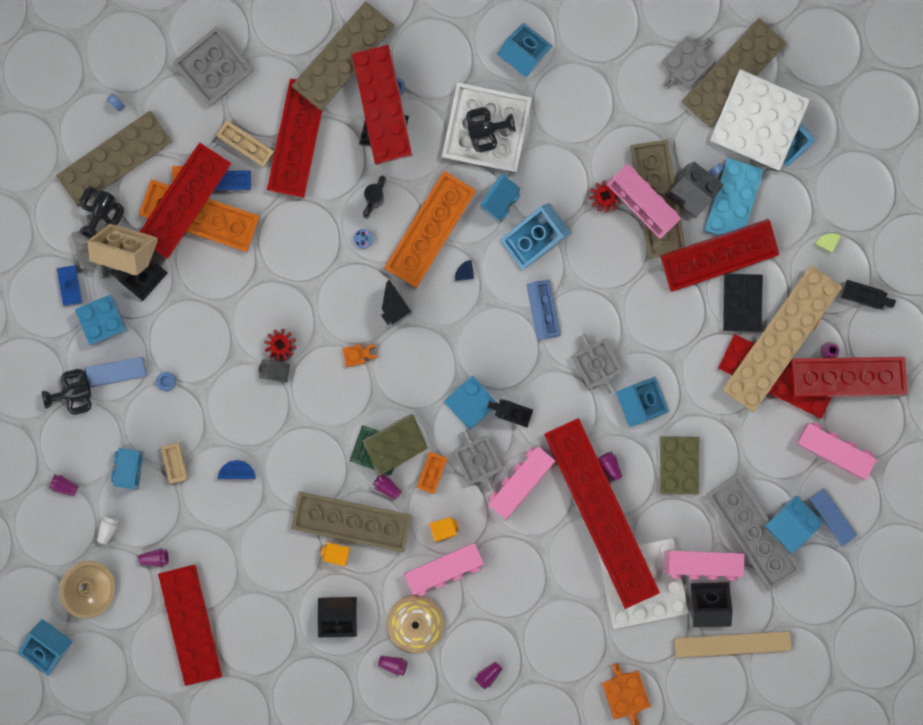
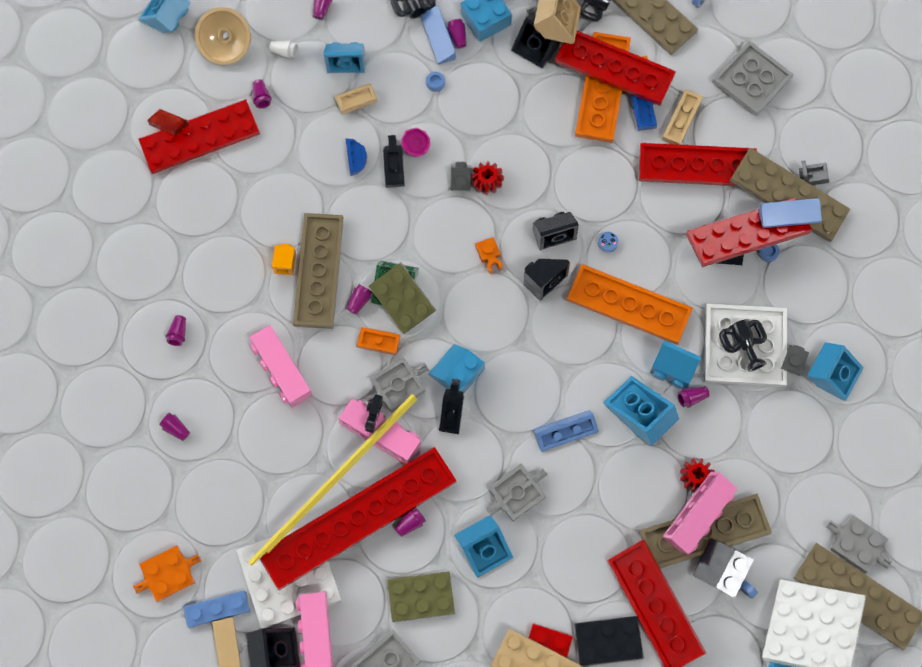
camera: 85 degrees right, 15 degrees down
(117, 351) = (457, 32): none -> magenta cone
(173, 654) = (168, 122): none -> clear red tile
(233, 410) = (415, 142): none -> dark pink hair
(250, 435) = (393, 164): none -> black hinge
(324, 28) = (814, 174): none -> dark grey bracket
(337, 617) = (219, 268): black slope -> none
(345, 288) = (555, 230): none -> black slope
(372, 62) = (790, 213): none -> medium blue slope
(374, 196) = (653, 244): black piece -> none
(425, 613) = (223, 360): tan dish -> none
(444, 528) = (322, 360): light orange brick -> none
(465, 271) = (592, 345): dark blue tile -> none
(503, 485) = (374, 407): none -> black plate
(509, 85) = (795, 359): none -> dark grey bracket
(529, 187) = (691, 396): none -> magenta cone
(567, 532) = (334, 479): none -> light yellow piece
(664, 652) = (216, 609): none -> medium blue plate
(735, 199) = (723, 615): medium azure plate -> none

